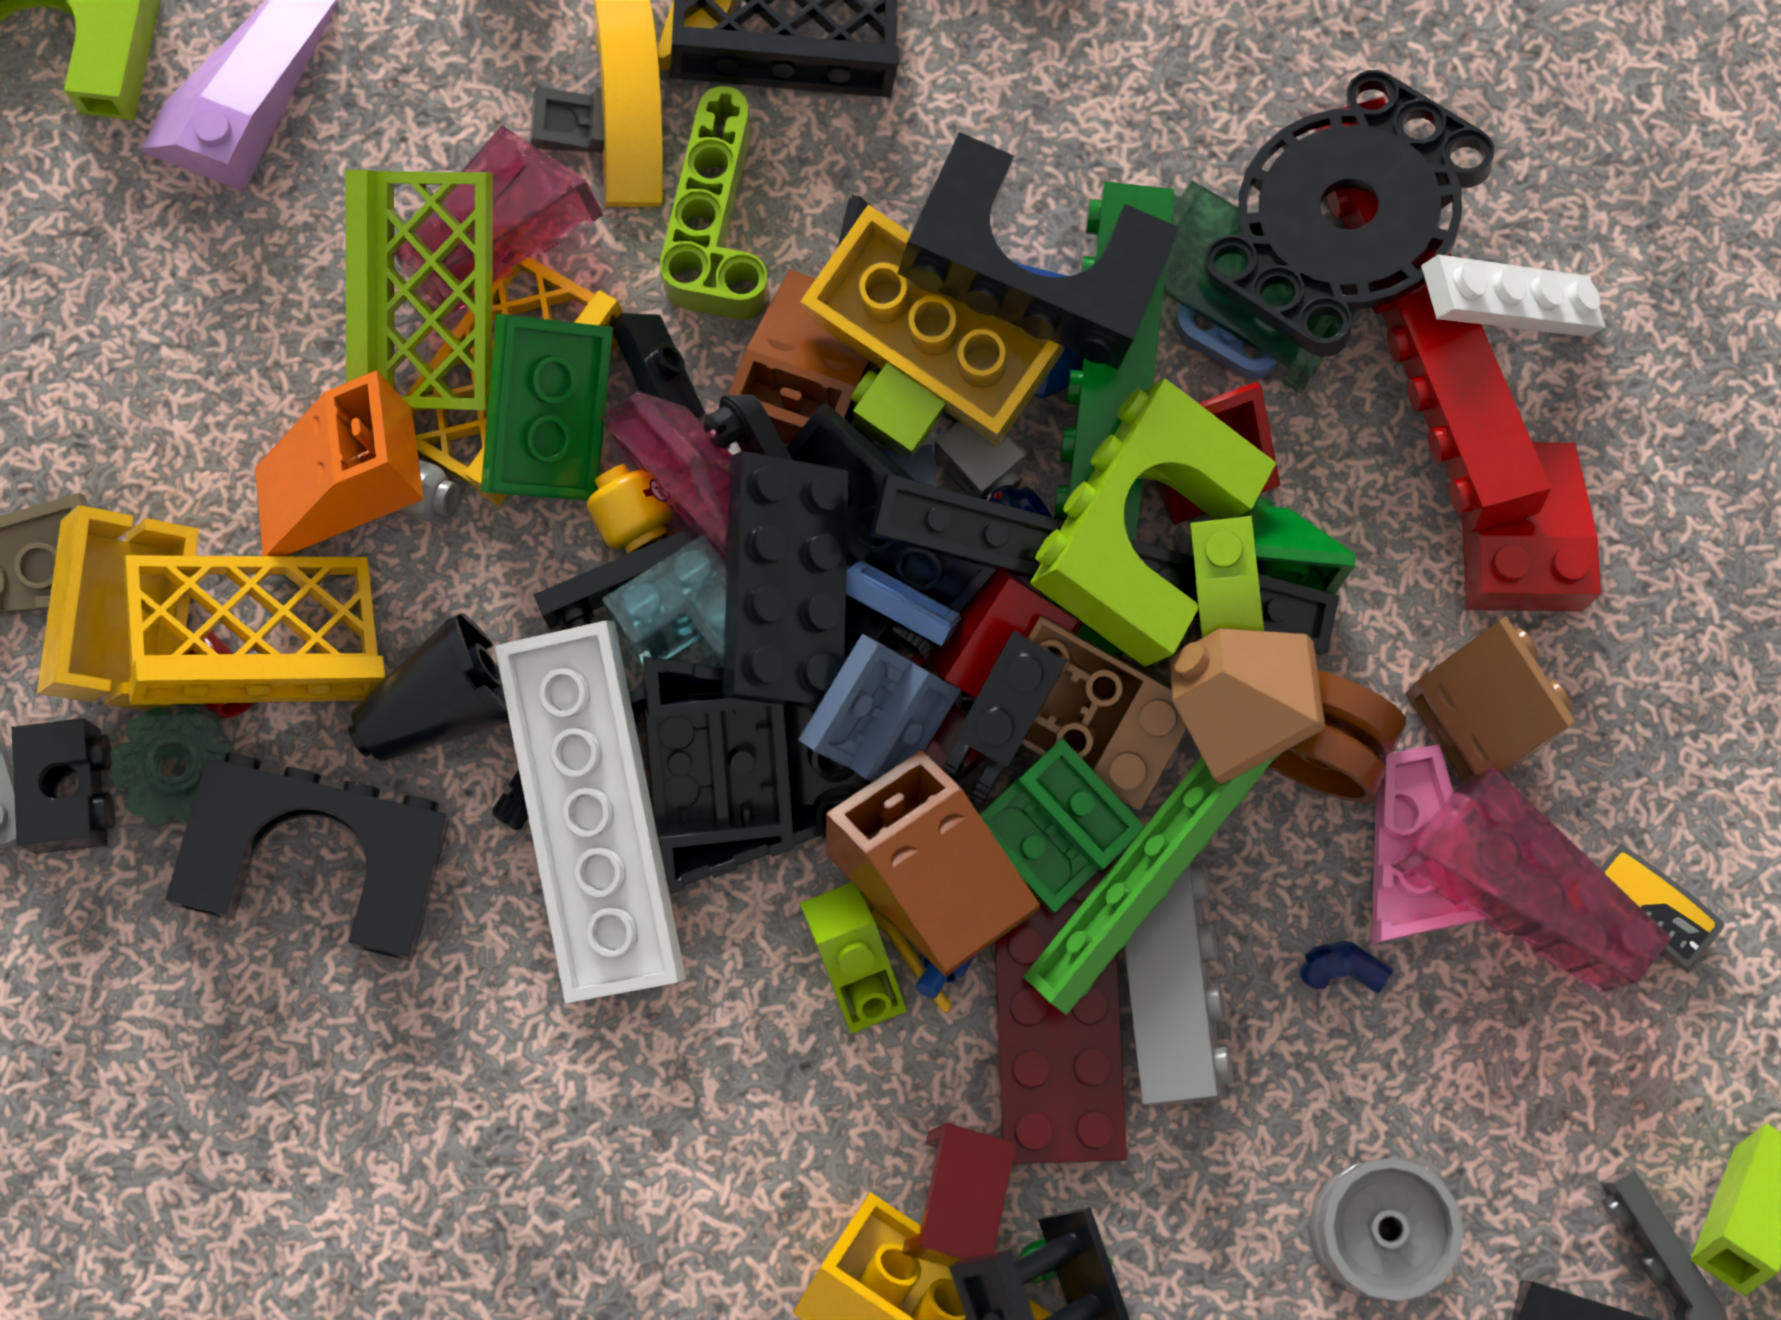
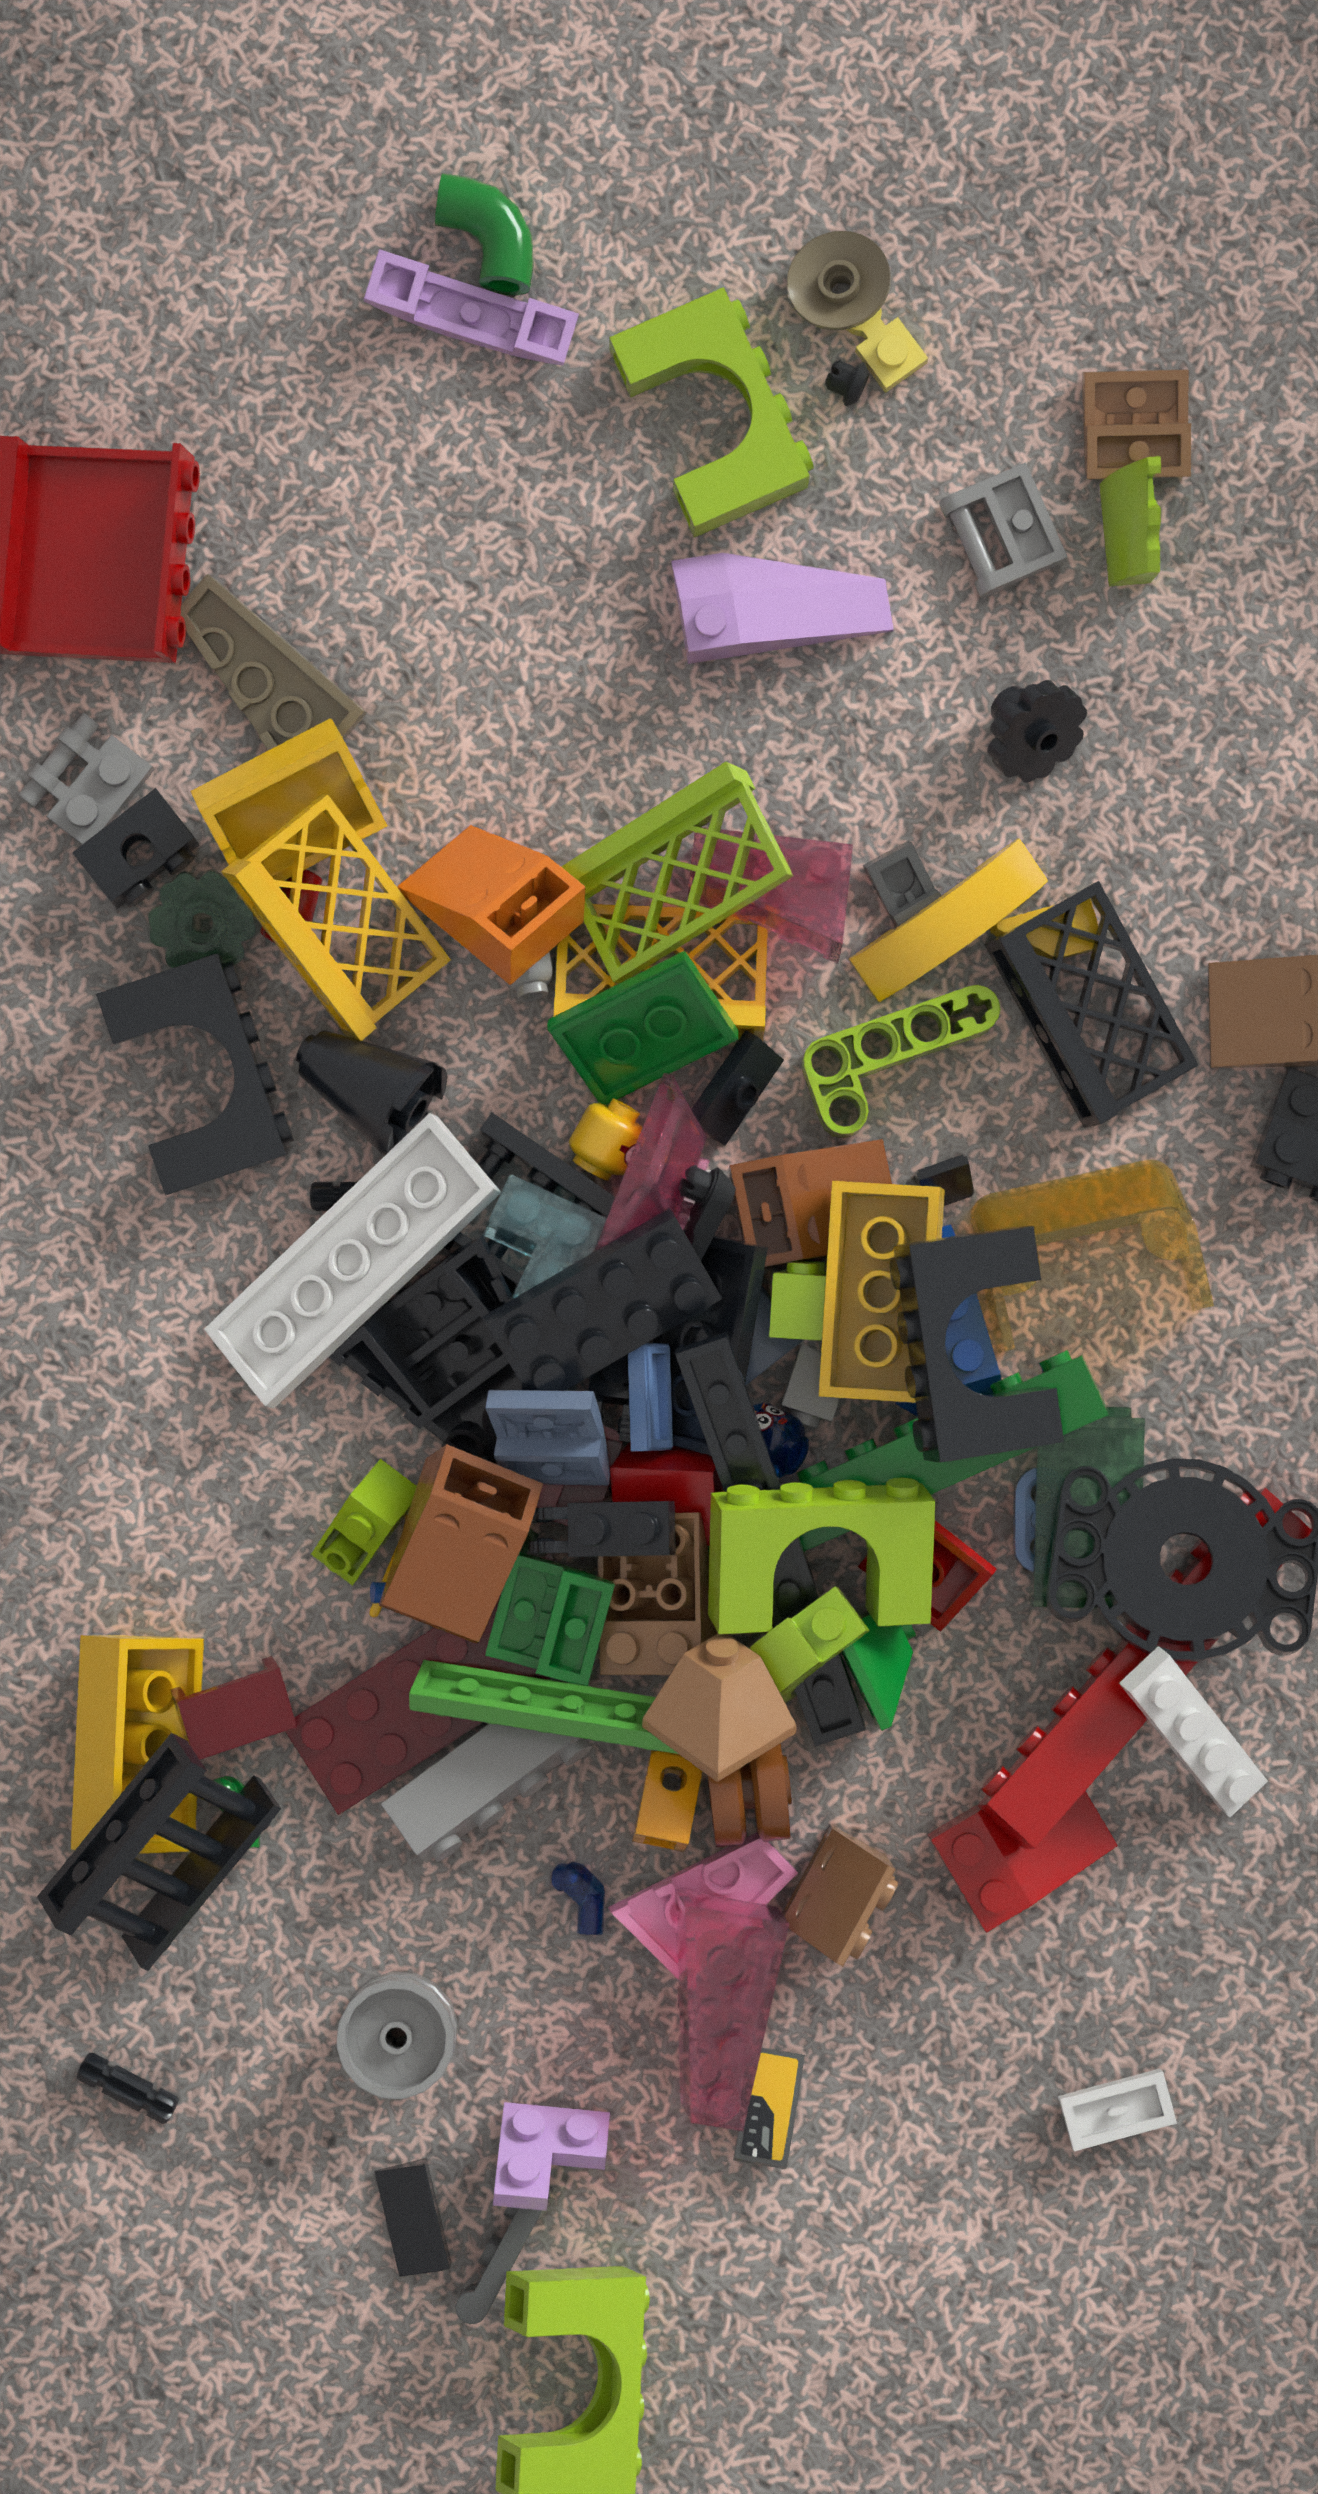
camera: 55 degrees right, 10 degrees up
(971, 103) = (1091, 1204): none -> clear yellow windscreen
(1308, 835) = (663, 1814): none -> light orange torso
(1569, 1156) = (542, 2137): none -> lavender plate

